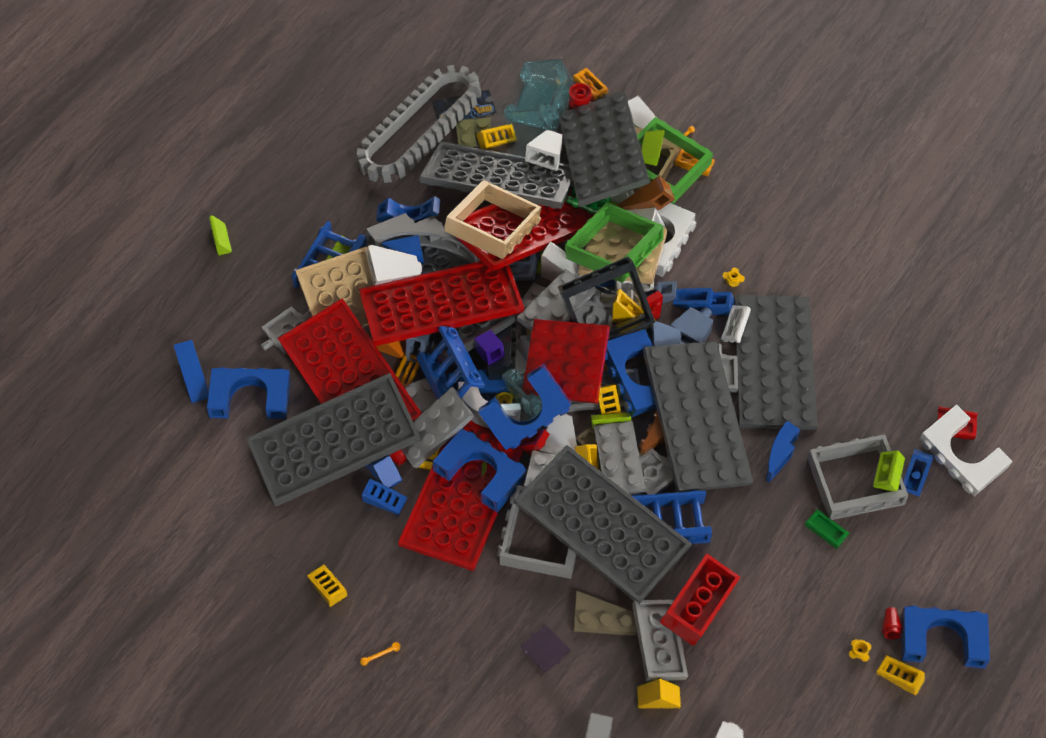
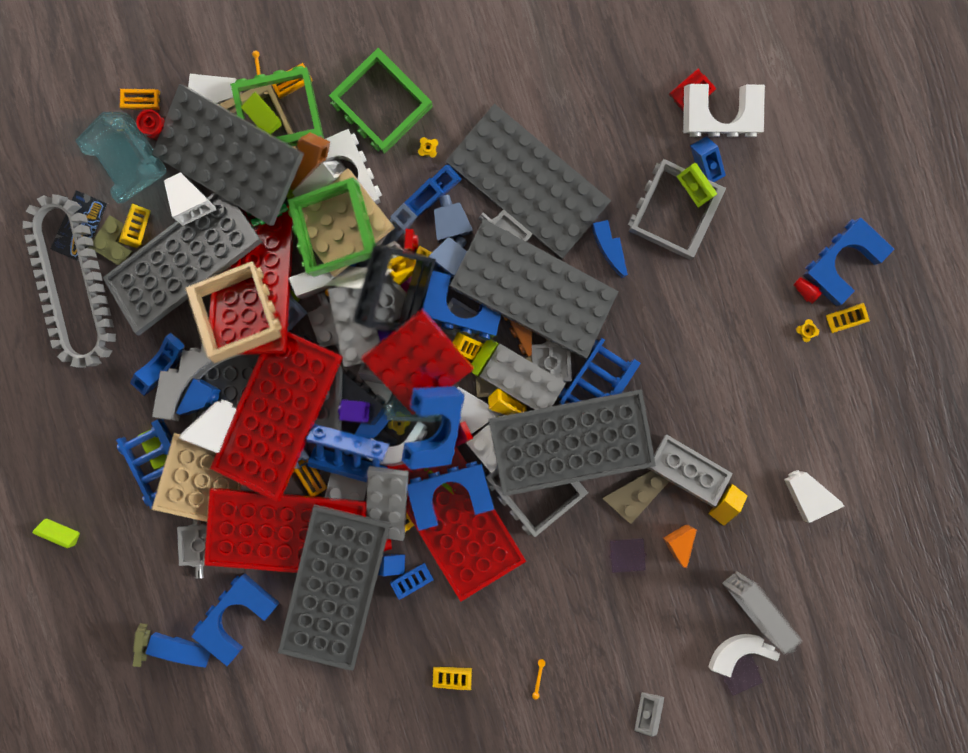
camera: 50 degrees left, 30 degrees up
(180, 334) = (141, 640): none -> olive plate
(593, 672) = (681, 543): none -> orange slope
(700, 599) = (687, 418): red brick -> none
(731, 250) = (402, 79): none -> bright green window
(738, 324) = (477, 183): white tile -> none
(826, 529) = (697, 269): green tile -> none

